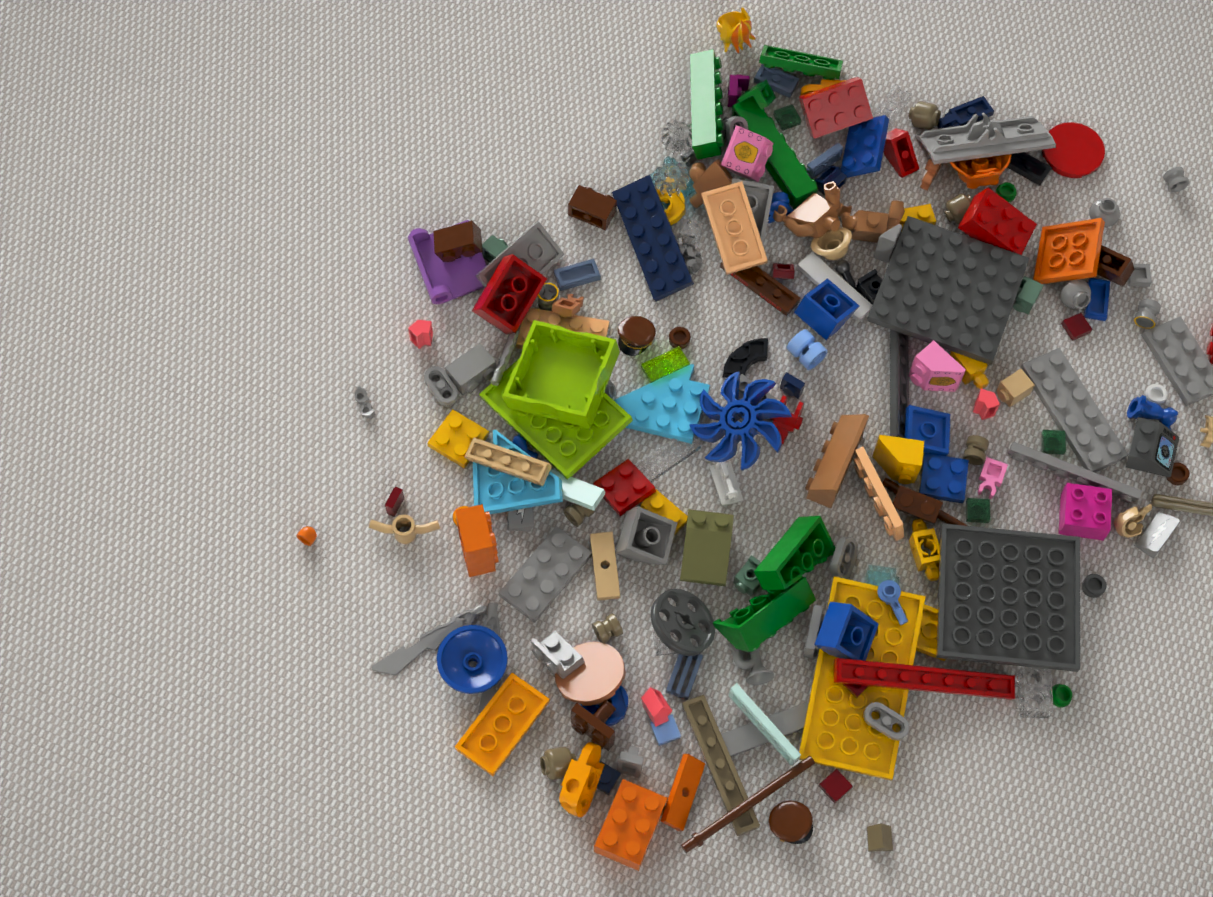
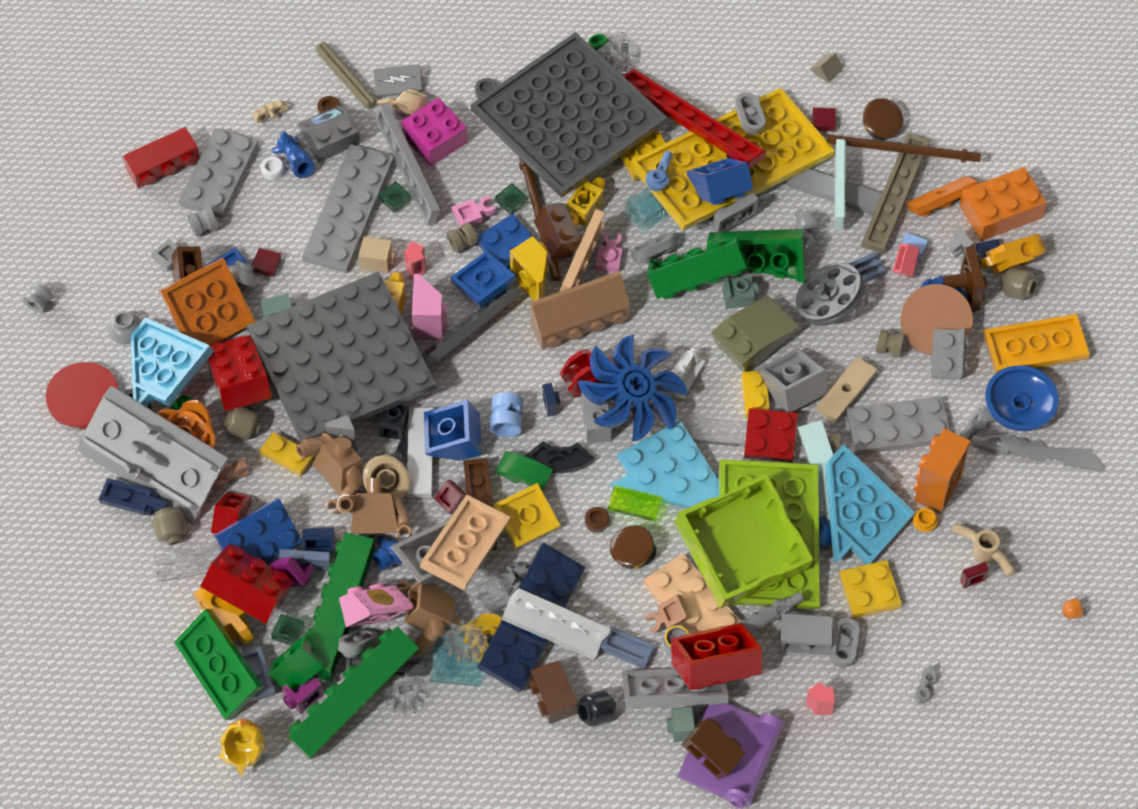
camera: 135 degrees left, 5 degrees down
(508, 461) = (854, 517): tan tile -> none
(556, 217) = (596, 708): none -> black head
(630, 237) = (555, 623): none -> white fence
(722, 296) = (529, 516): none -> yellow plate
(757, 326) = (523, 469): none -> green slope
(820, 142) = (299, 574): none -> magenta bracket
(867, 529) = (609, 255): none -> bright pink plate
(1046, 194) = (163, 362): none -> medium azure wing

